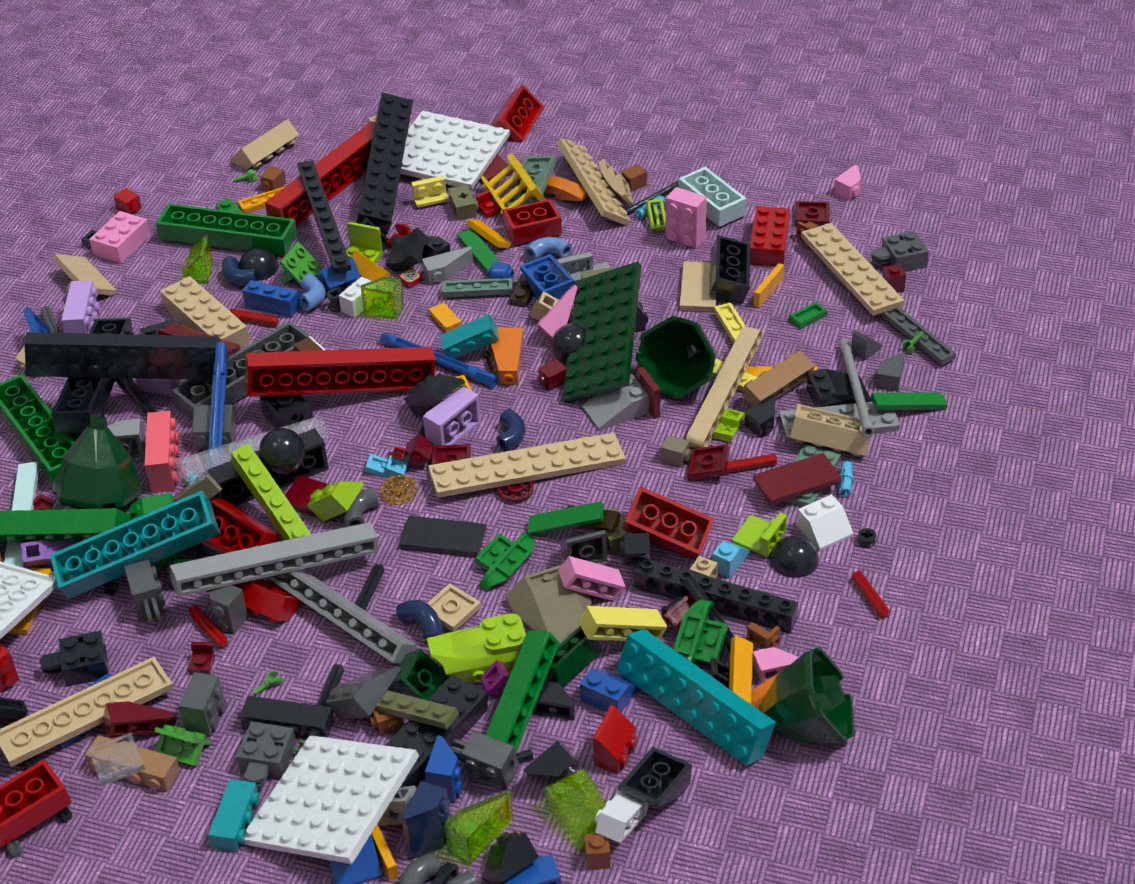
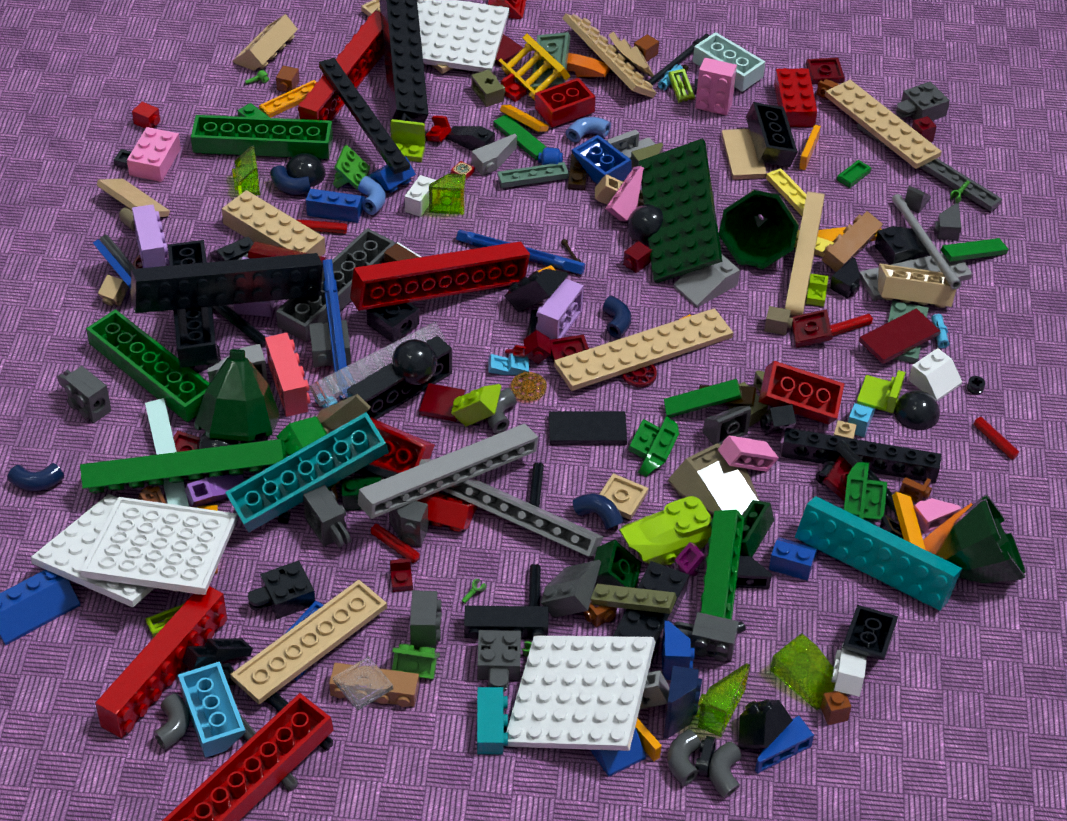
camera: 15 degrees left, 5 degrees up
(133, 718) = (361, 642): dark red slope -> none
(268, 493) = (418, 408): lime brick -> none
(333, 296) = (398, 198): black bush -> none
(368, 268) = (423, 166): light orange tile -> none
(406, 250) = (453, 143): black brick -> none
(429, 191) = (452, 79): light yellow bracket -> none
(445, 317) = (511, 208): light orange tile -> none
(470, 337) = (548, 227): teal brick -> none
(508, 354) = (584, 238): orange slope -> none
(553, 762) = (773, 630): black slope -> none
(614, 741) = (818, 605): red slope -> none
(618, 622) = (790, 493): light yellow brick -> none
(651, 389) = (741, 262): dark red tile -> none
(848, 183) = (851, 37): bright pink slope -> none

